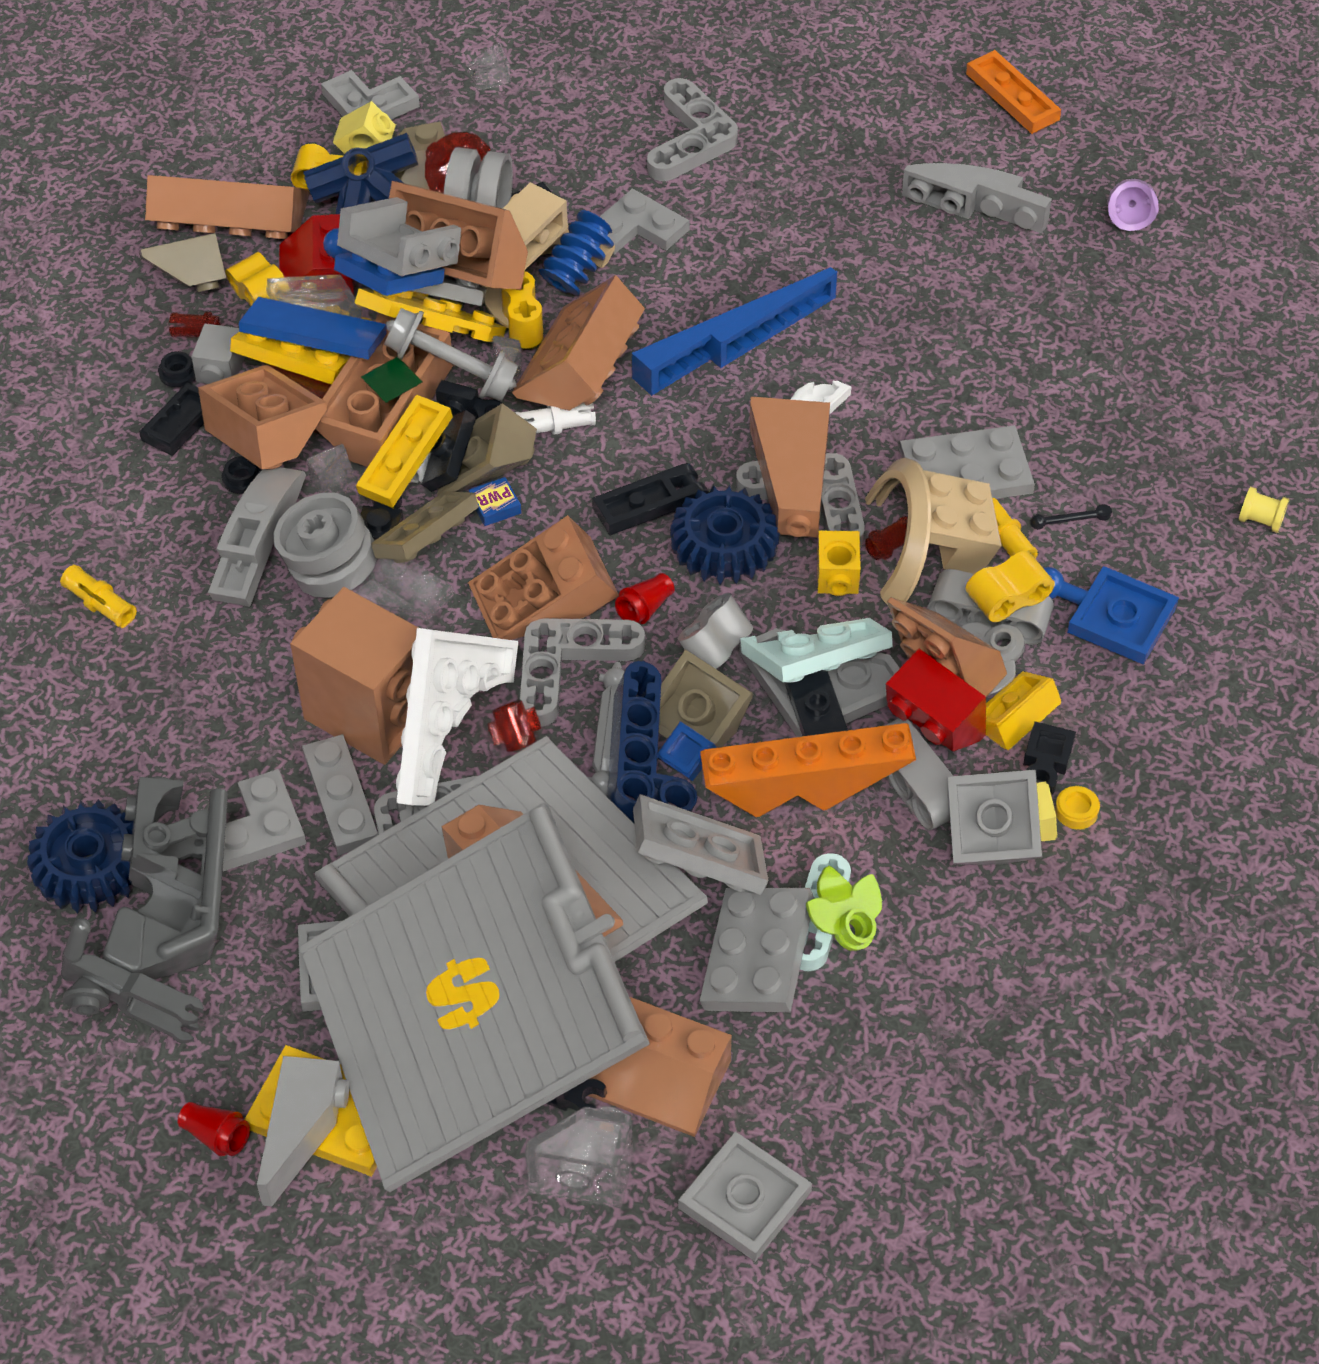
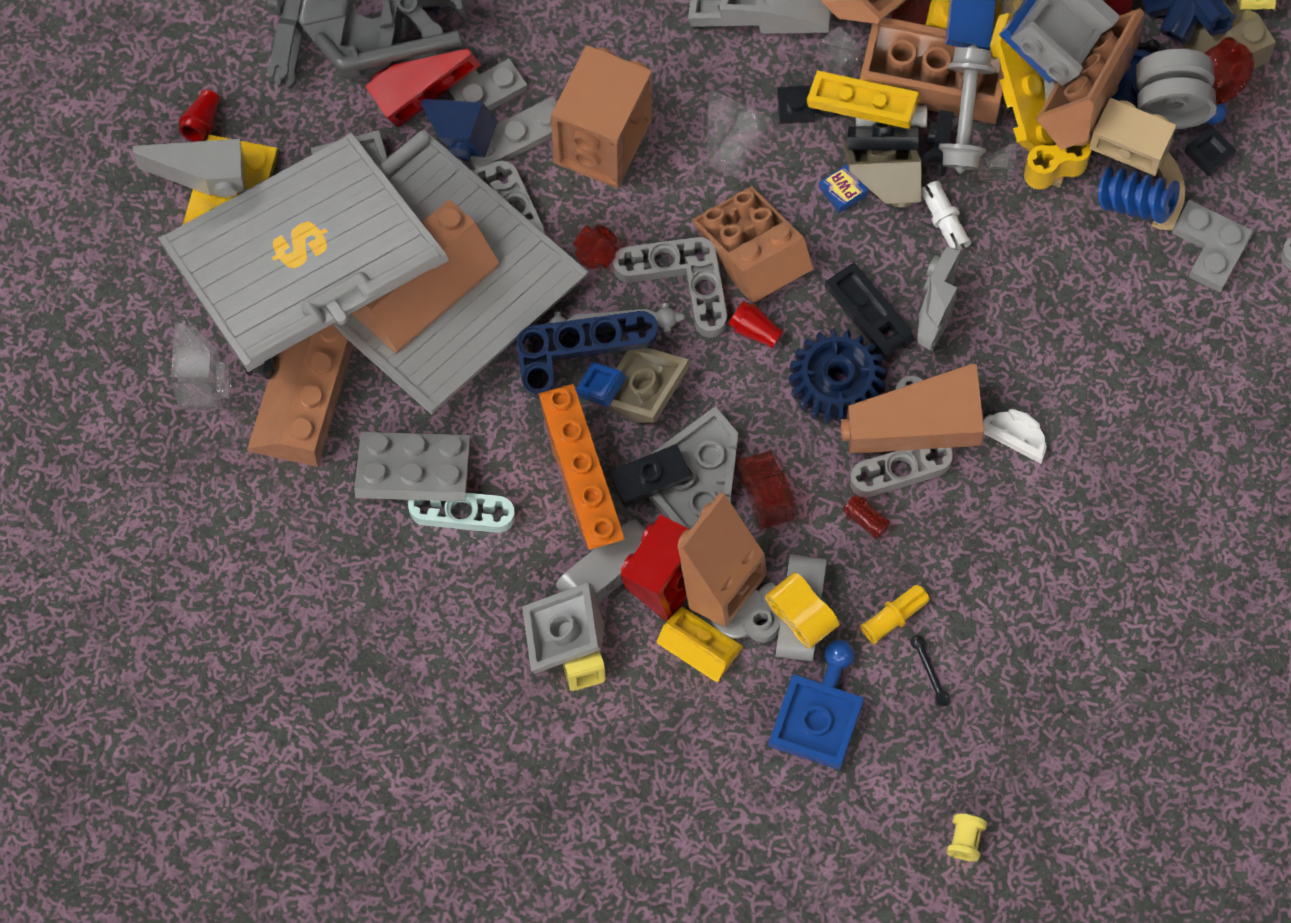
camera: 80 degrees right, 15 degrees up
(250, 878) = (406, 84): none -> red slope
(323, 832) = (462, 126): none -> dark blue slope
(325, 544) = (748, 62): light grey wheel -> none
(391, 379) = (930, 69): dark green sticker -> none
(424, 526) = (789, 135): dark tan plate -> none
(443, 679) = (593, 172): white plate -> none
(581, 347) = (1022, 220): nougat slope -> none
(661, 424) = (939, 299): none -> light grey plate
(699, 845) = (487, 400): light grey plate -> none
(716, 631) = (719, 383): light grey axle -> none
(731, 333) = (1081, 348): blue slope -> none
(745, 1196) = (194, 490): light grey plate -> none
(803, 654) = (704, 459): light aqua wing -> none
(838, 562) = (830, 461): yellow brick -> none
(845, 904) = (465, 524): lime plate -> none
(851, 602) = (766, 490): none -> clear red arch
(941, 512) = (875, 545): tan piece -> none
(979, 455) = (968, 573): light grey plate -> none
(1049, 752) = (652, 671): black plate -> none
(1077, 807) = (602, 703): yellow tile -> none

